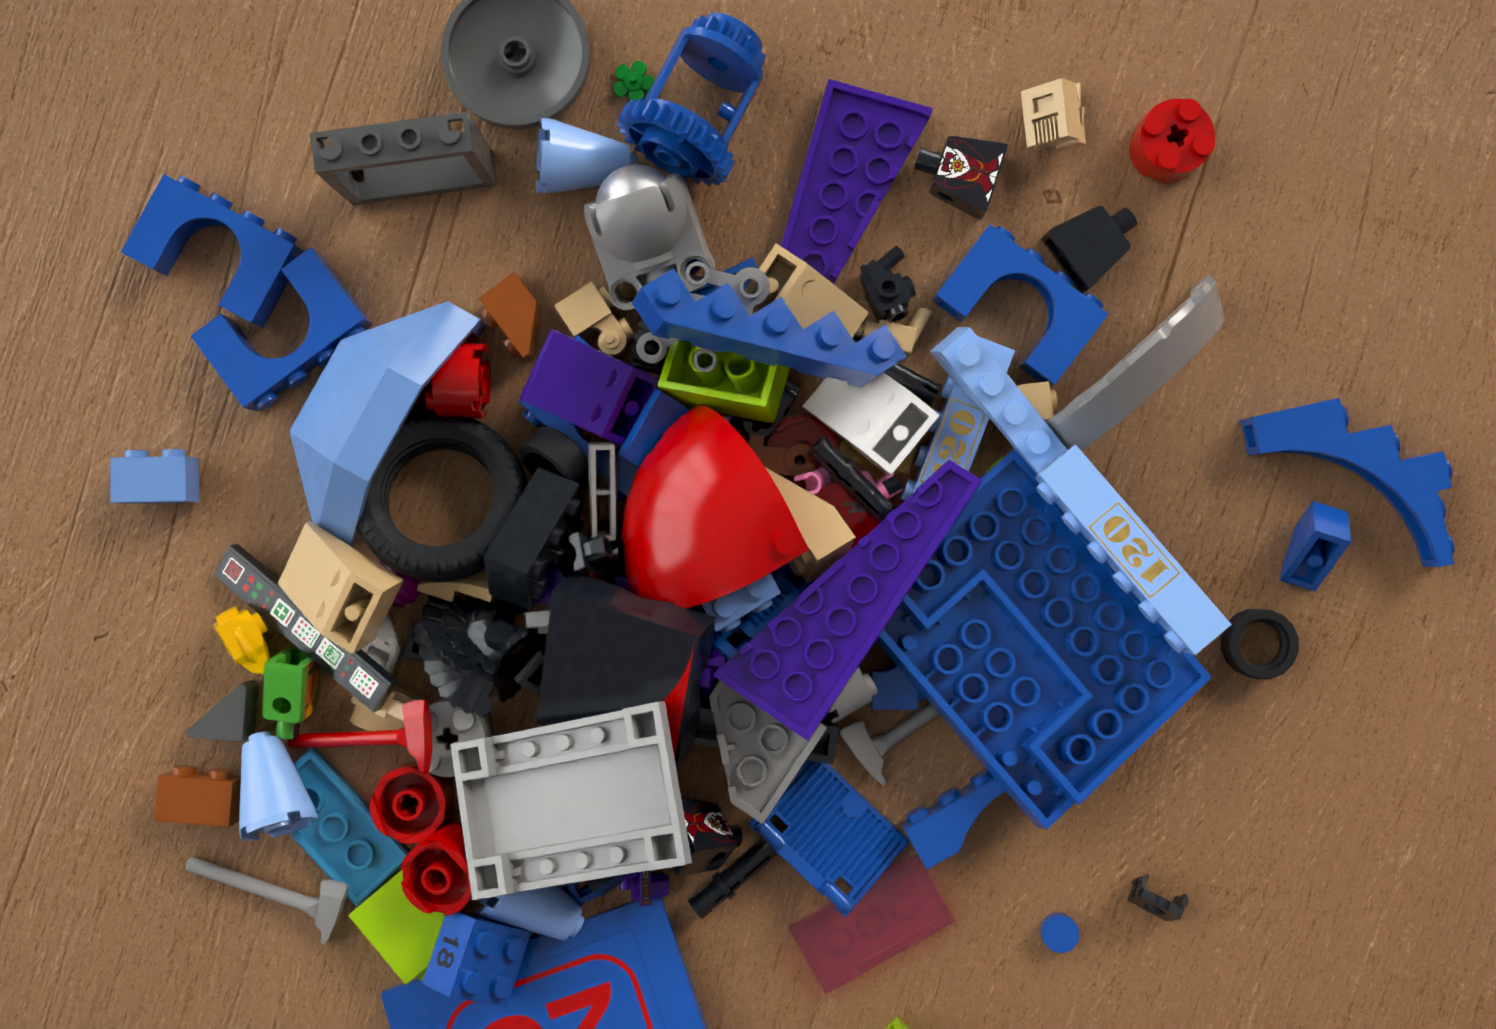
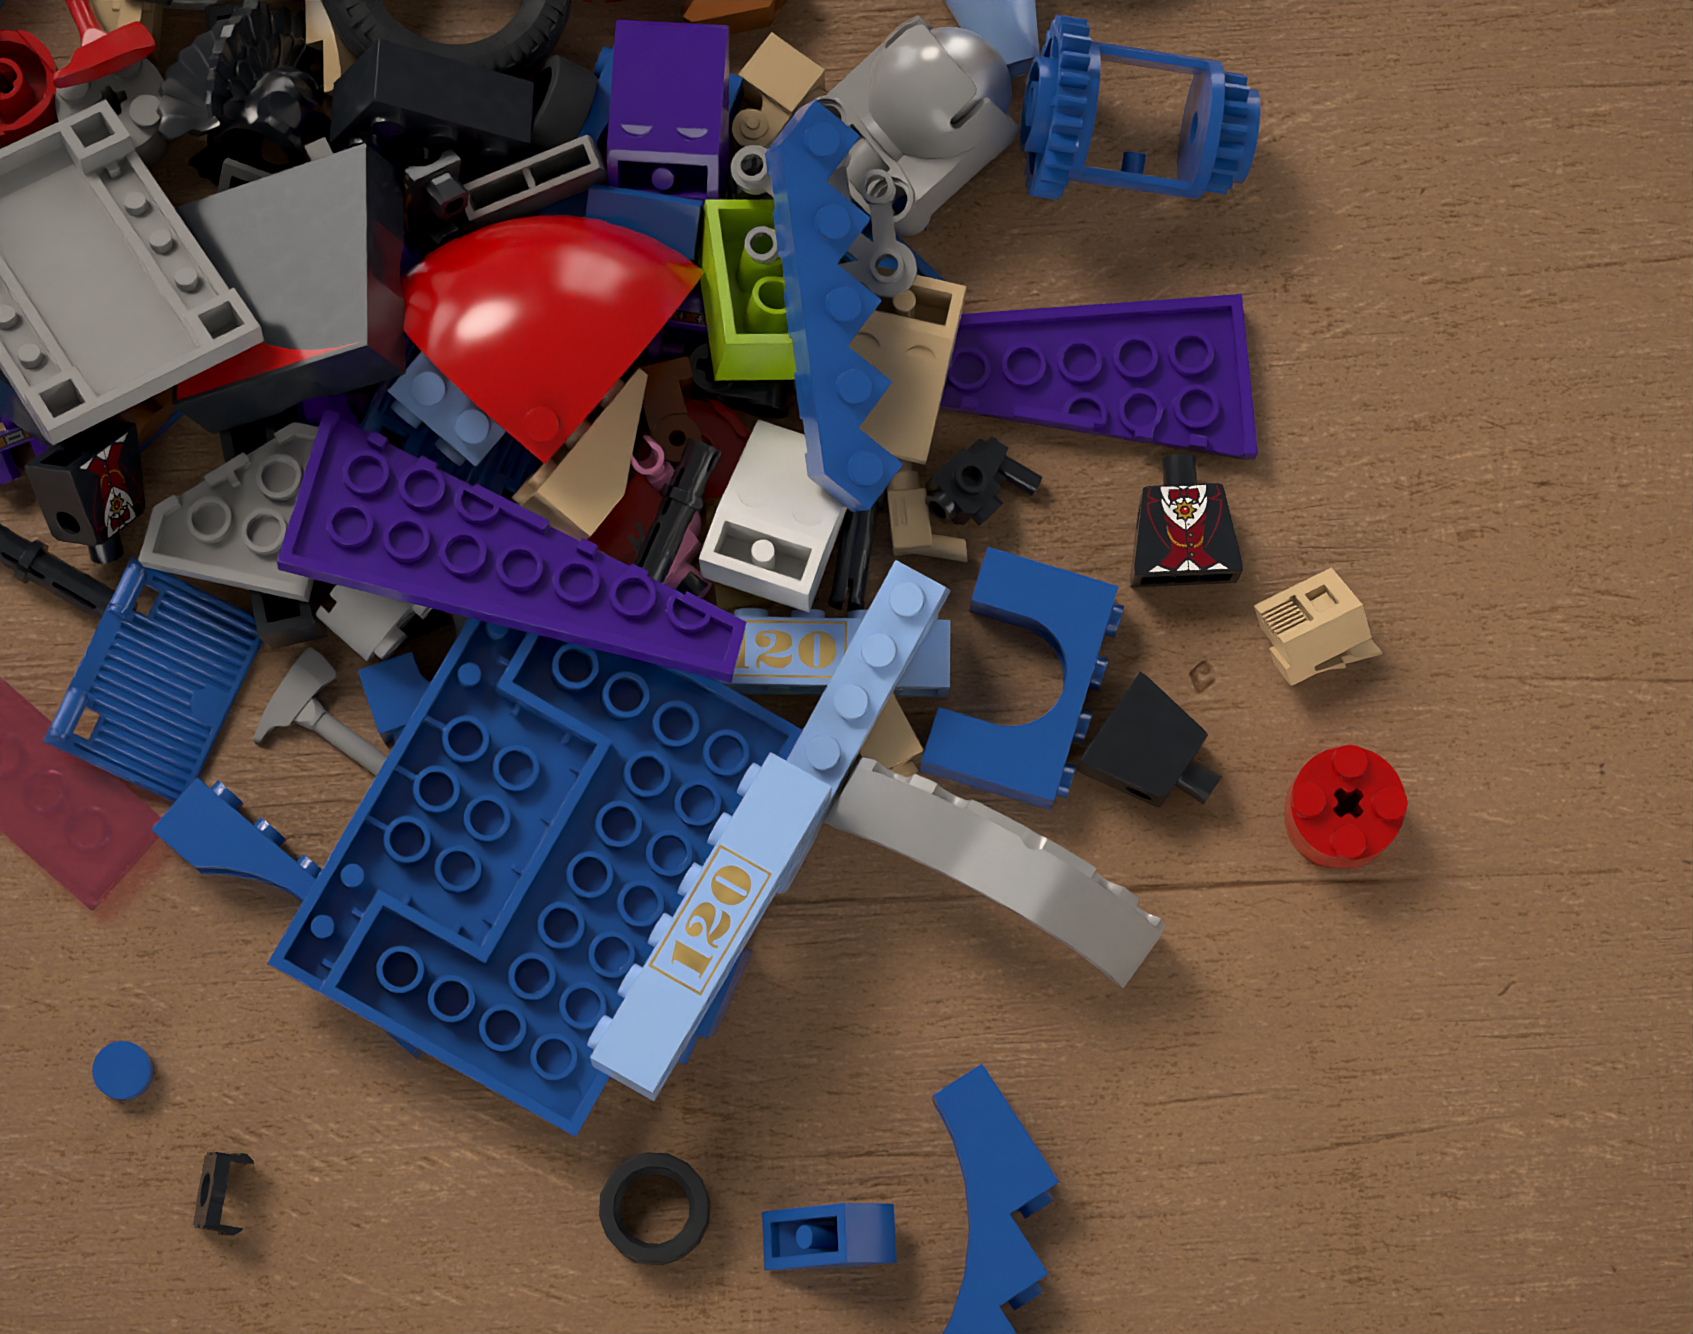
camera: 70 degrees right, 10 degrees down
(633, 81) = (1136, 32): green plant -> none

